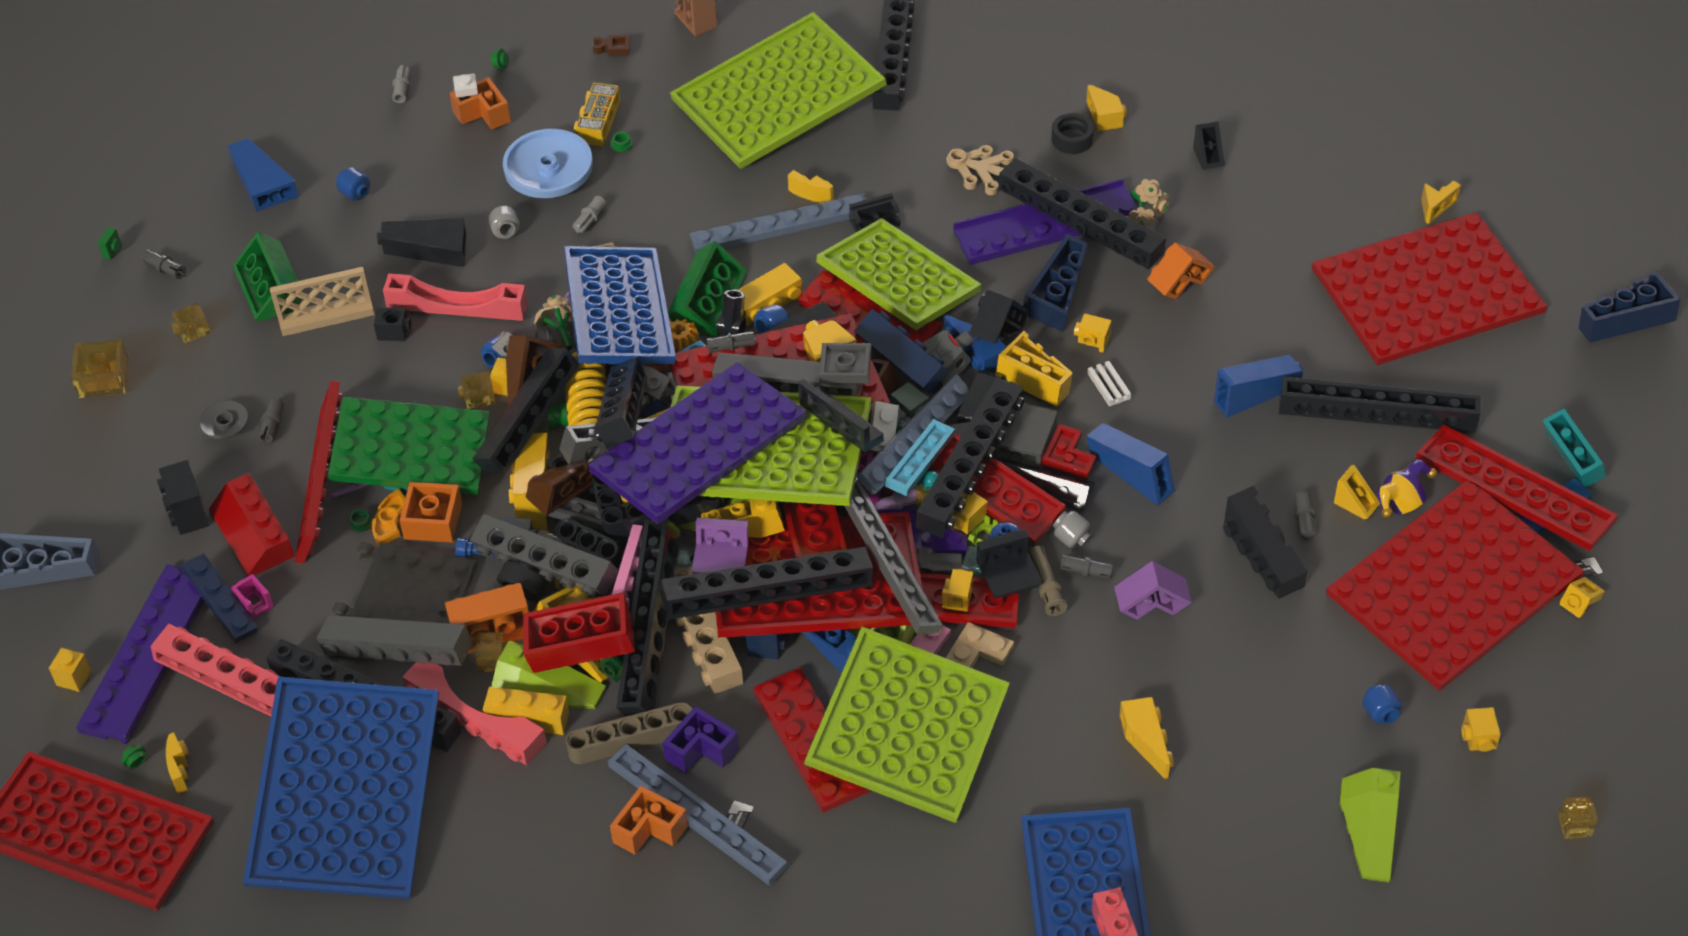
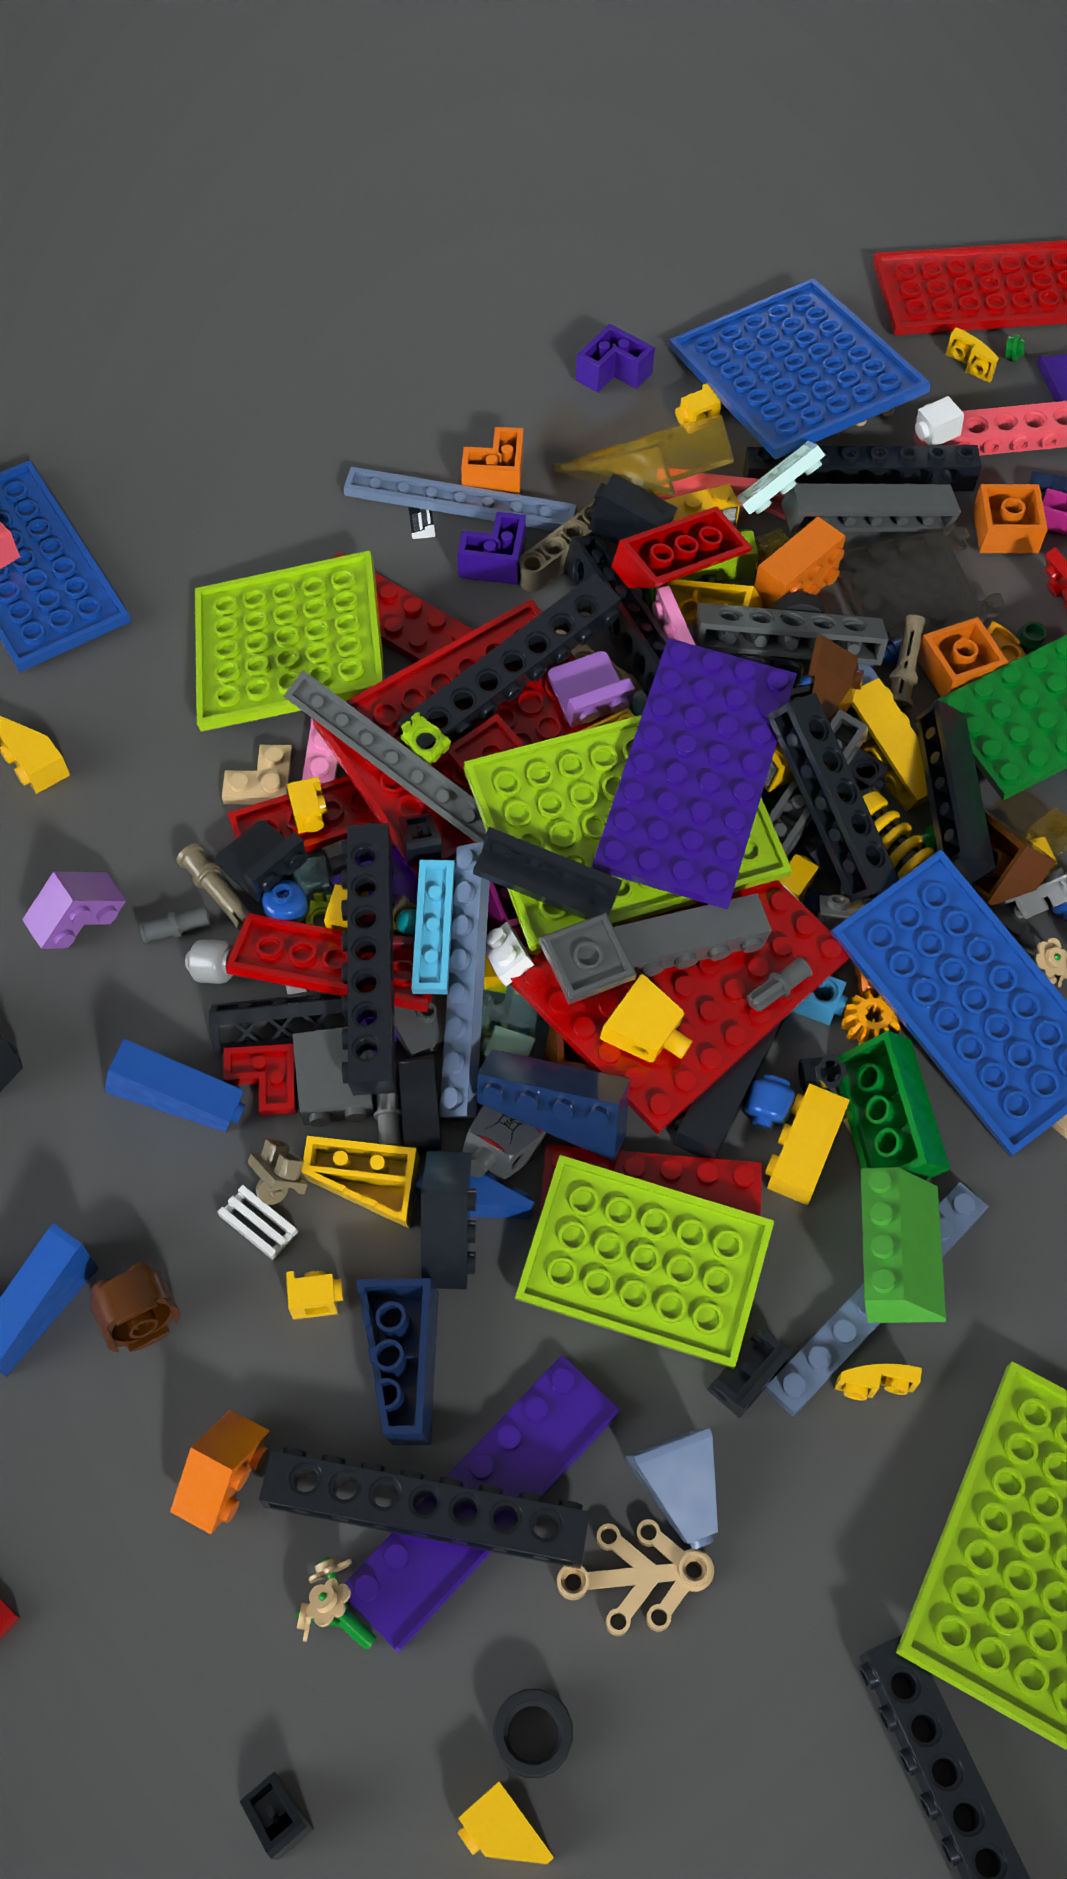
camera: 150 degrees right, 10 degrees up
(277, 669) = (939, 422): none -> white brick
(296, 599) = (1009, 518): none -> orange brick
(441, 811) = (698, 406): none -> yellow brick
(457, 657) = (781, 477): none -> light aqua plate
(469, 525) = (907, 677): none -> dark tan pin
(478, 890) = (614, 355): none -> dark purple brick
(554, 763) = (657, 457): none -> clear yellow windscreen
(587, 690) = (627, 510): none -> black brick
(759, 221) = (901, 1248): none -> bright green slope
(860, 539) = (419, 726): none -> lime piece
(898, 511) = (420, 838): none -> black slope
(941, 189) = (681, 1483): none -> sand blue slope
(1086, 387) = (277, 1171): none -> dark tan hips
(1199, 354) = (133, 1308): none -> reddish brown brick

